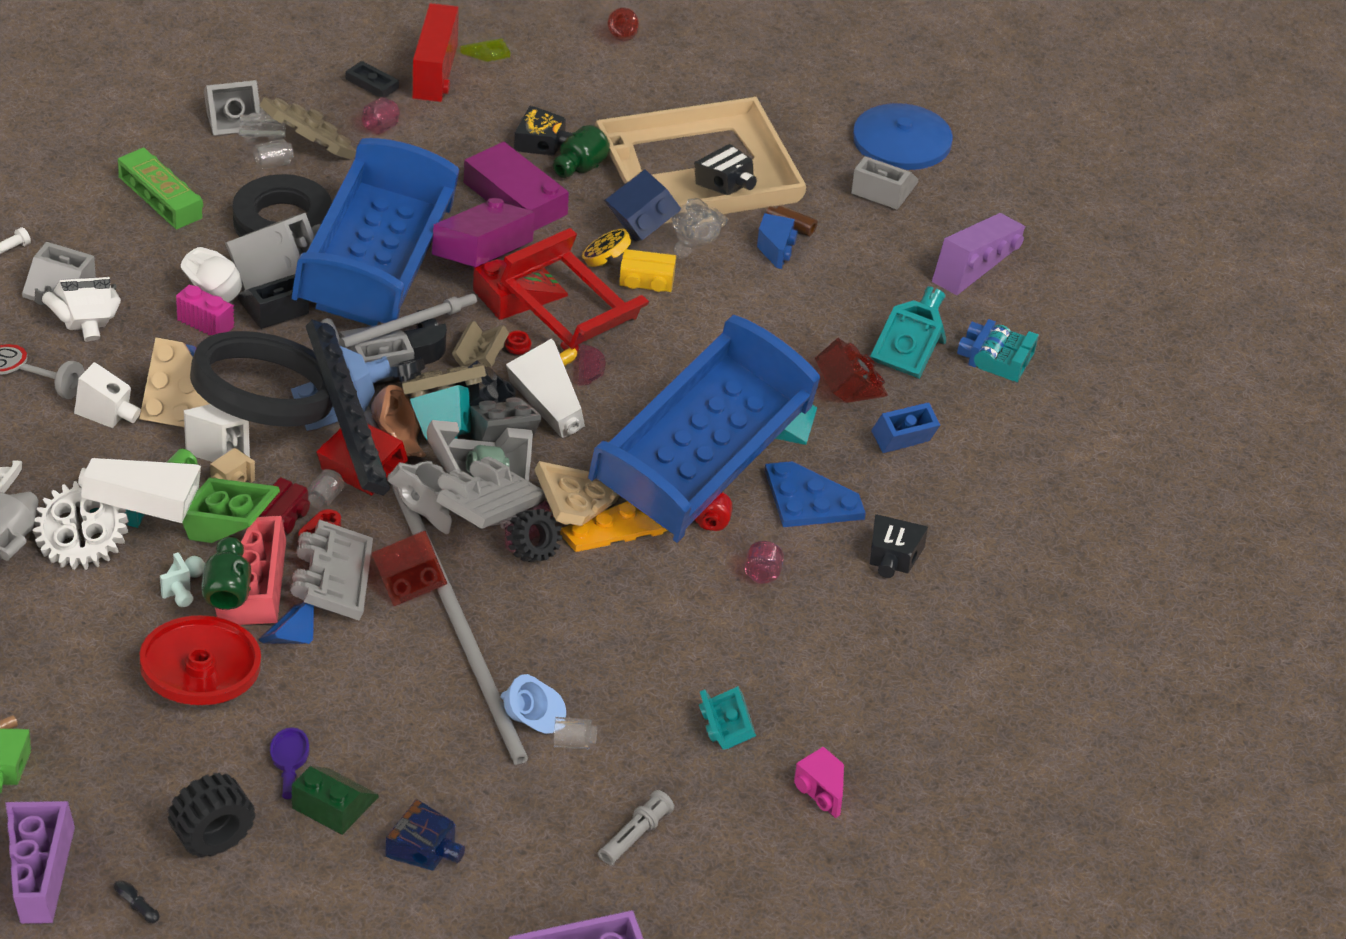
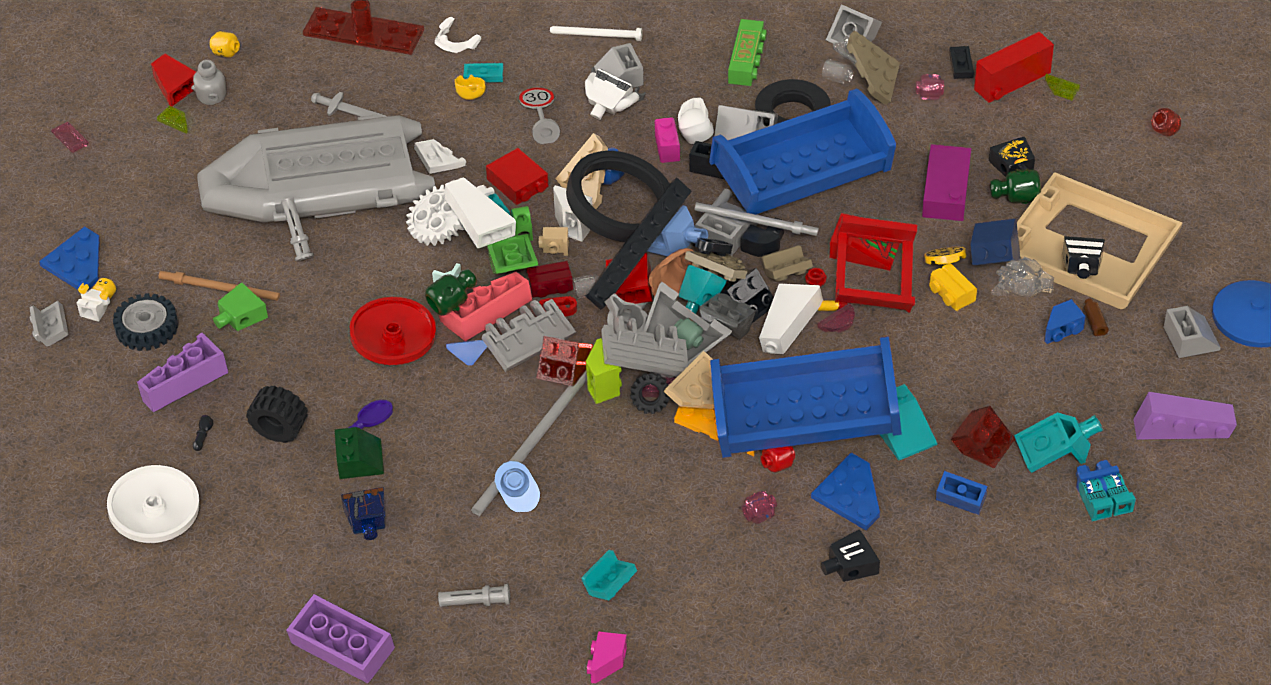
camera: 55 degrees right, 5 degrees up
(102, 436) = (517, 176): none -> red brick
(104, 397) = (547, 158): white torso -> none
(464, 549) = (602, 378): none -> lime slope
(483, 232) = (875, 195): magenta brick -> none
(574, 733) = (518, 518): clear brick -> none

